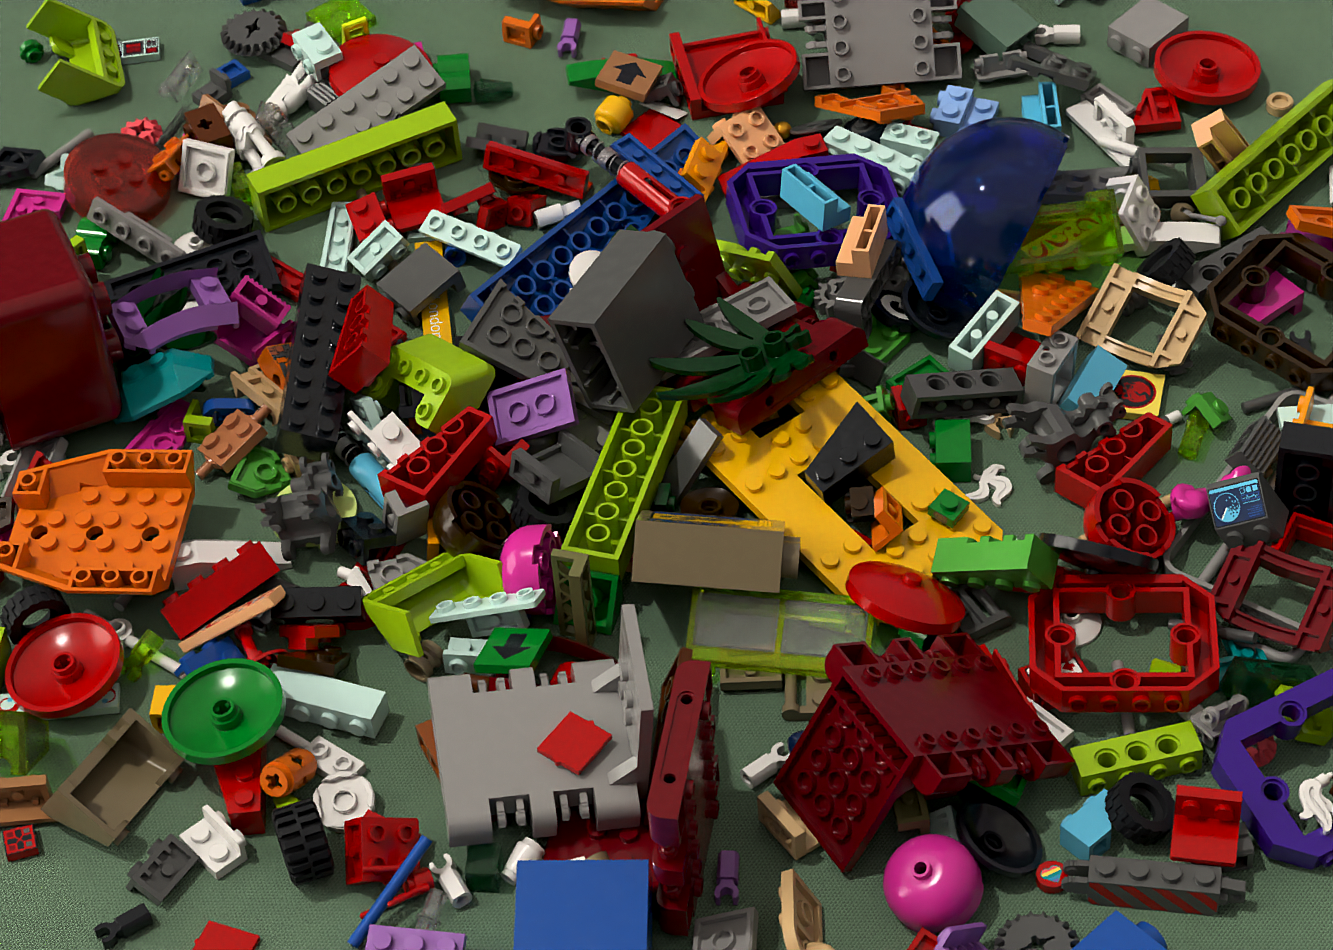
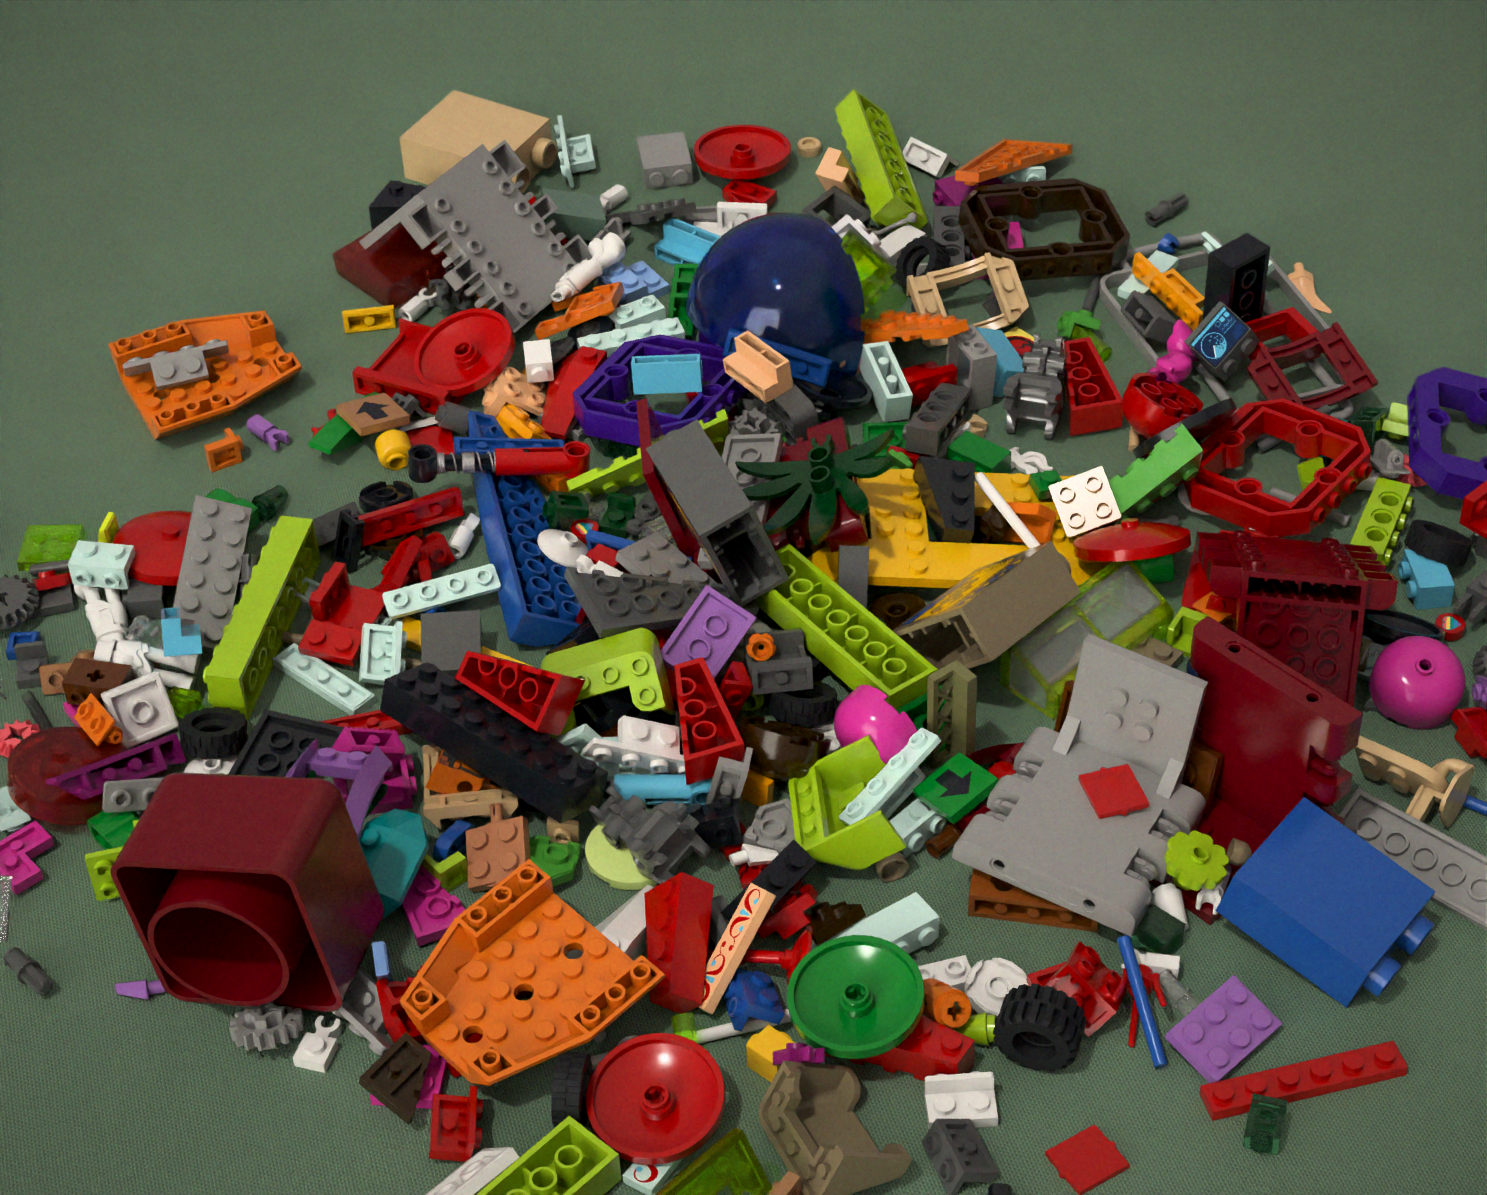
camera: 55 degrees left, 5 degrees down
(58, 442) = (382, 961): none -> medium blue tile
(136, 197) = (127, 765): none -> magenta wedge
(151, 716) = (799, 1053): none -> magenta plate
(274, 133) = (179, 638): none -> medium azure piece
(476, 156) = (348, 540): none -> black tile
(558, 836) = (1195, 861): none -> lime plant
(560, 447) = (761, 654): none -> orange plate
(678, 115) = (453, 417): none -> dark grey brick
(778, 121) = (538, 361): none -> white brick
(867, 504) = (1006, 510): none -> white bar
(921, 77) = (604, 254): none -> white piece
(931, 539) = (1085, 502): none -> bracket

